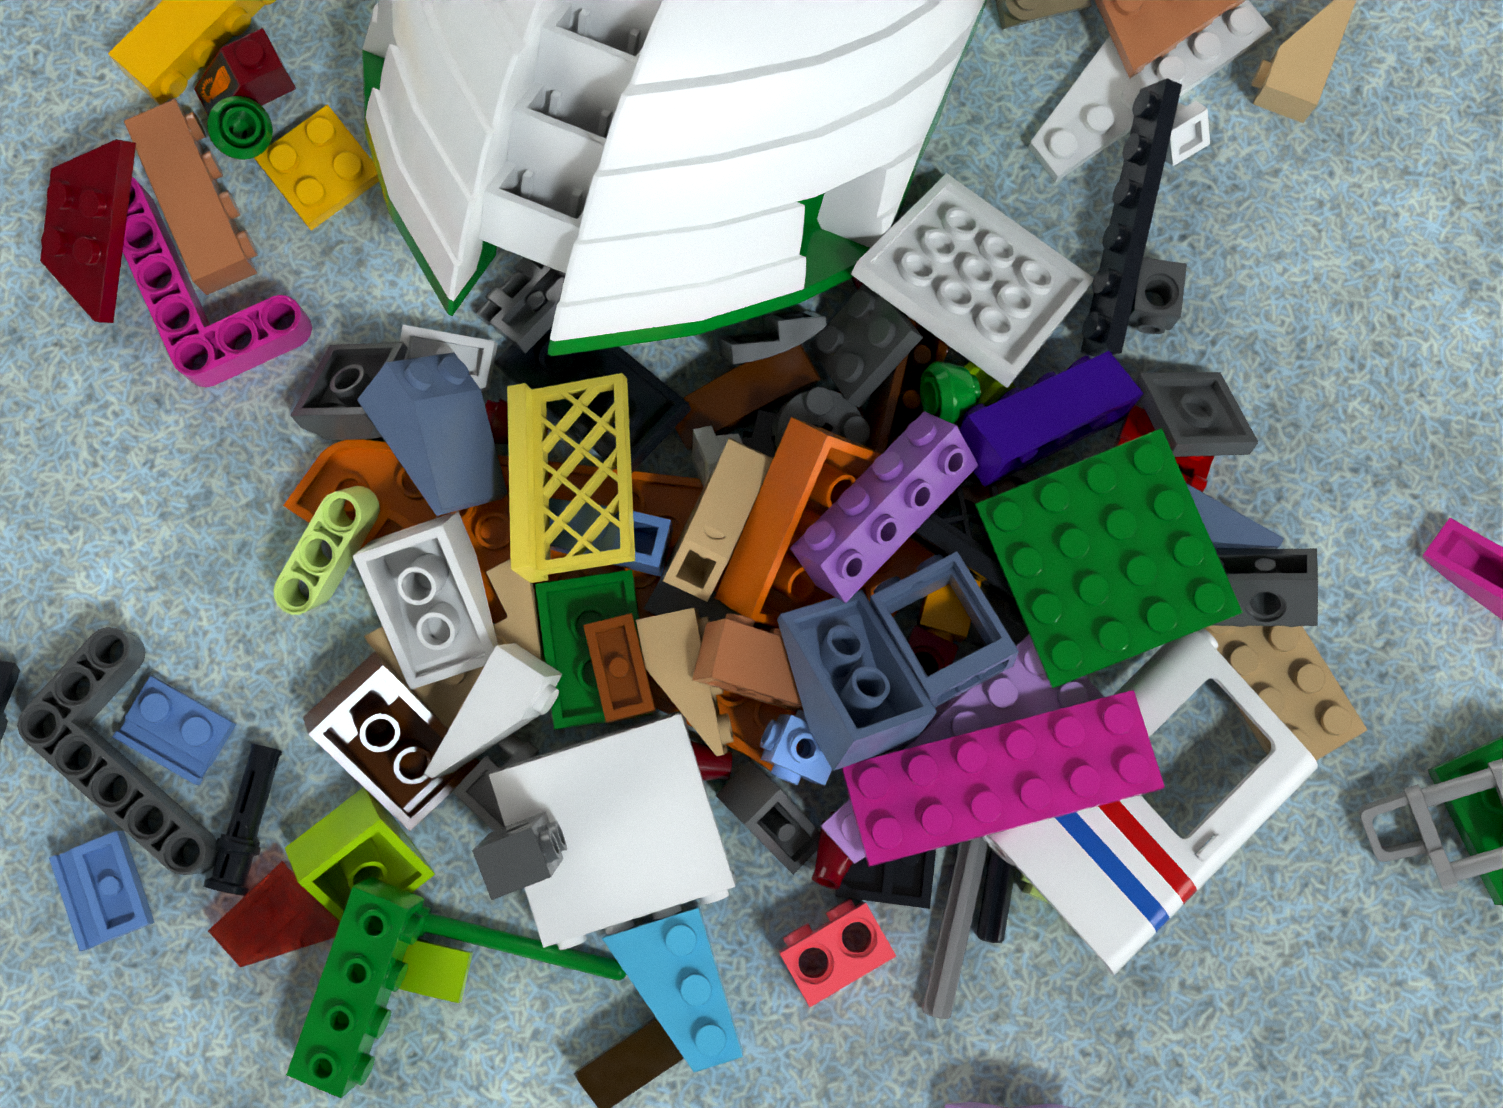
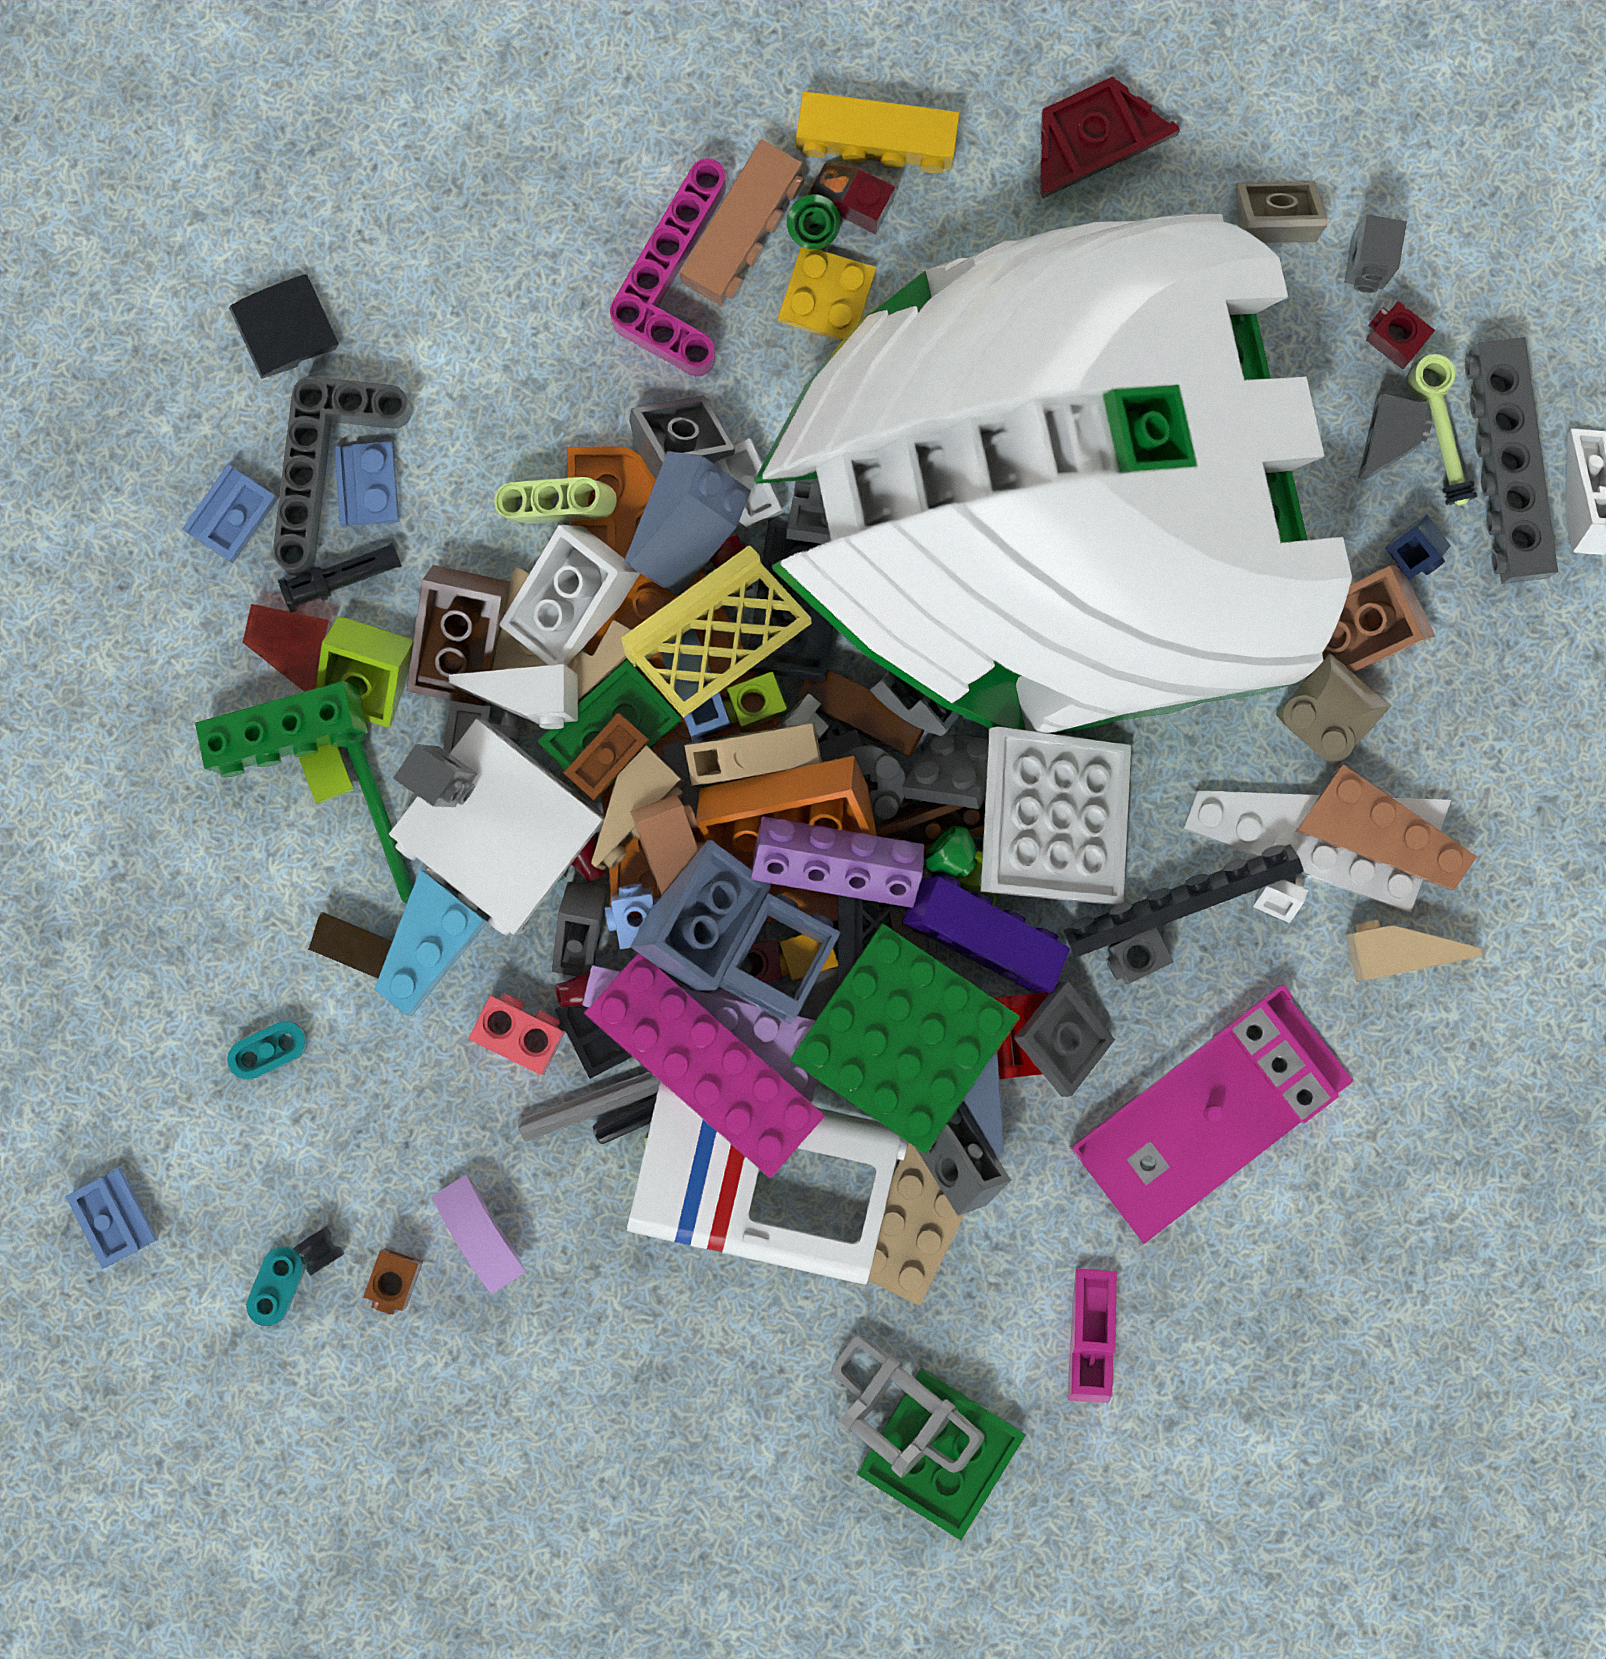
camera: 55 degrees right, 5 degrees up
(88, 225) = (668, 171): dark red wing -> none
(669, 467) = (766, 687): none -> lime brick
(1348, 332) = (1211, 1114): none -> dark pink piece

